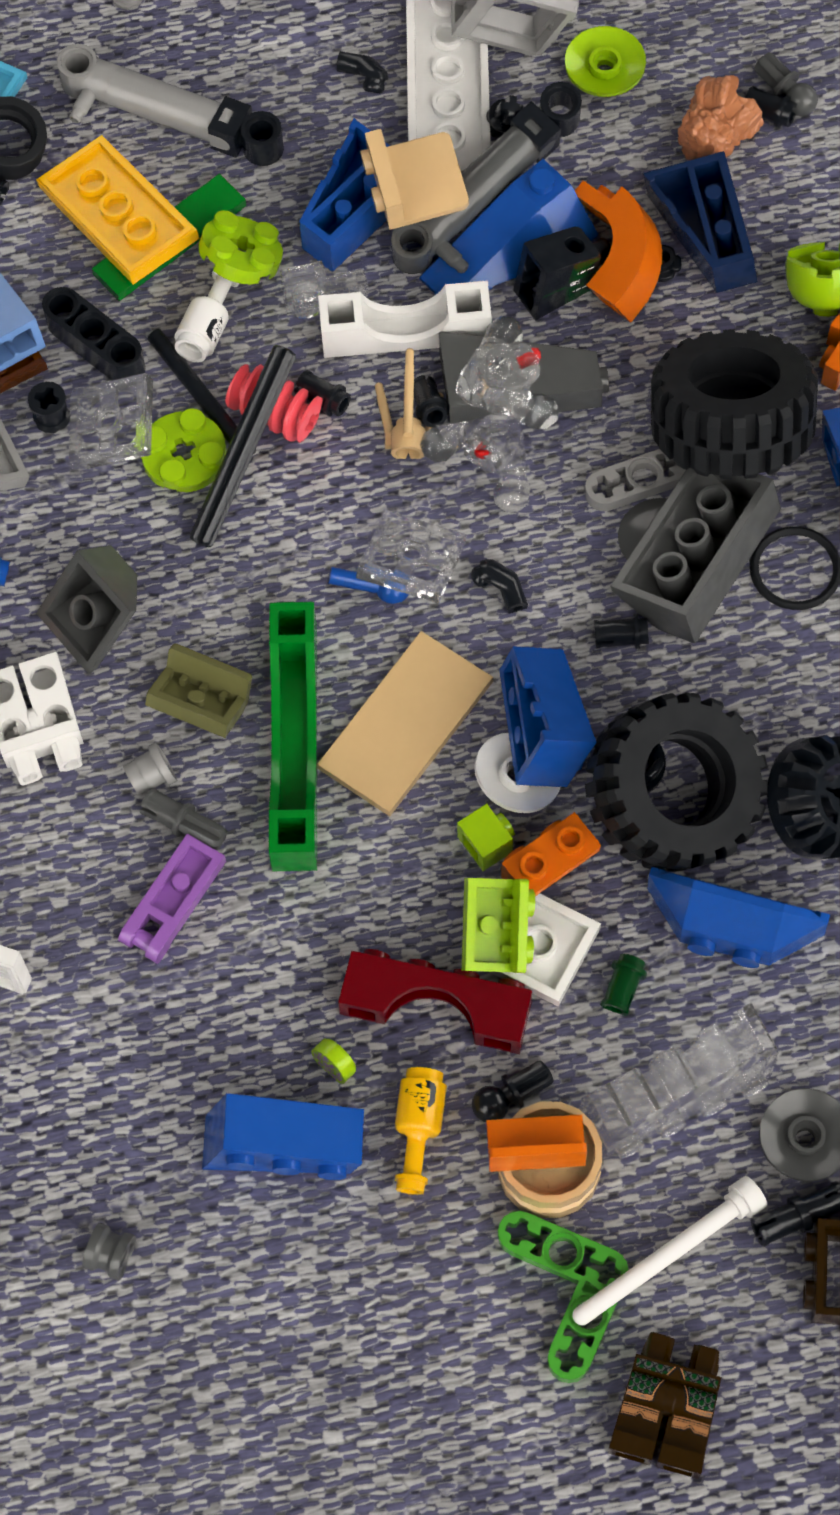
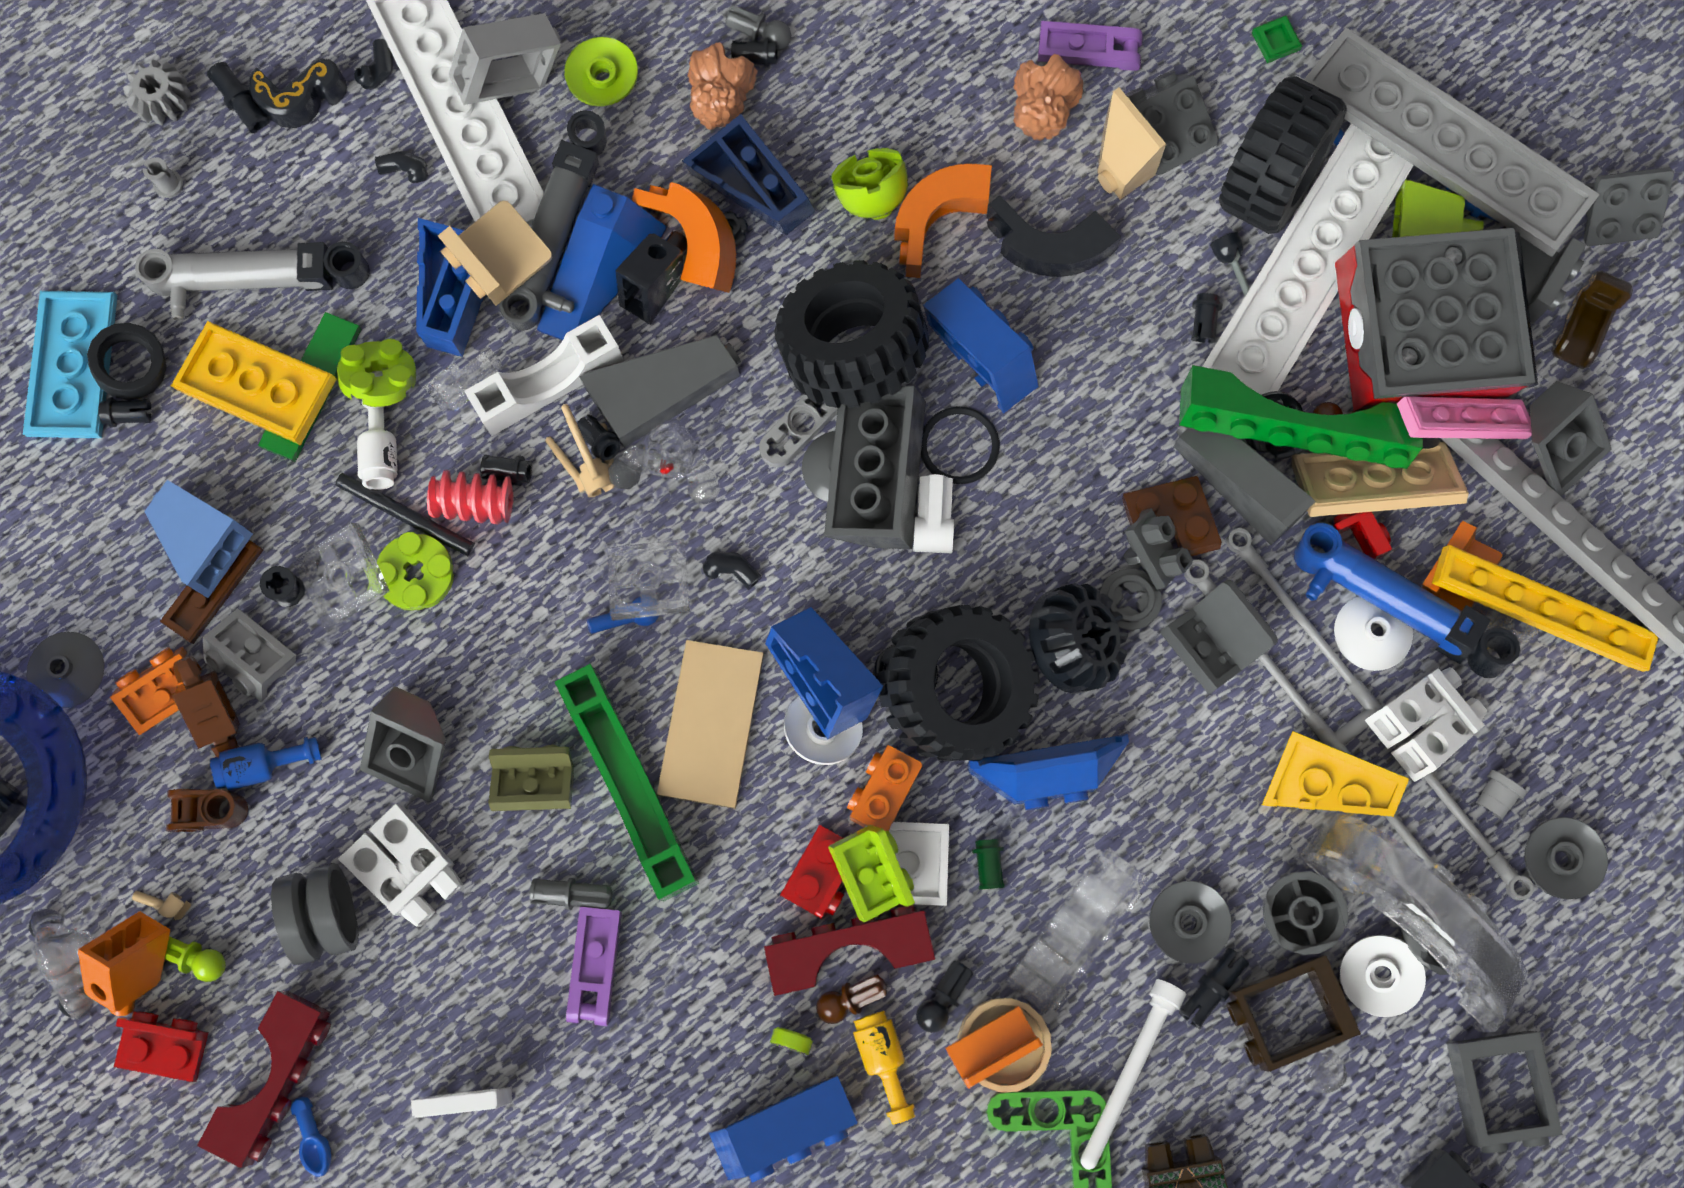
camera: 25 degrees left, 10 degrees up
(87, 321) = (275, 497): black beam -> none
(150, 770) = (522, 864): light grey piece -> none
(242, 446) = (464, 550): black axle -> none
(394, 1051) = (833, 1006): none -> reddish brown axle
(436, 919) = (816, 878): none -> red bracket
(486, 836) = (823, 792): lime plate -> none
(501, 114) = (540, 158): black axle -> none
(501, 377) = (651, 393): clear head -> none
(621, 632) = (848, 565): black pin -> none
(733, 624) = (934, 524): none -> white piece

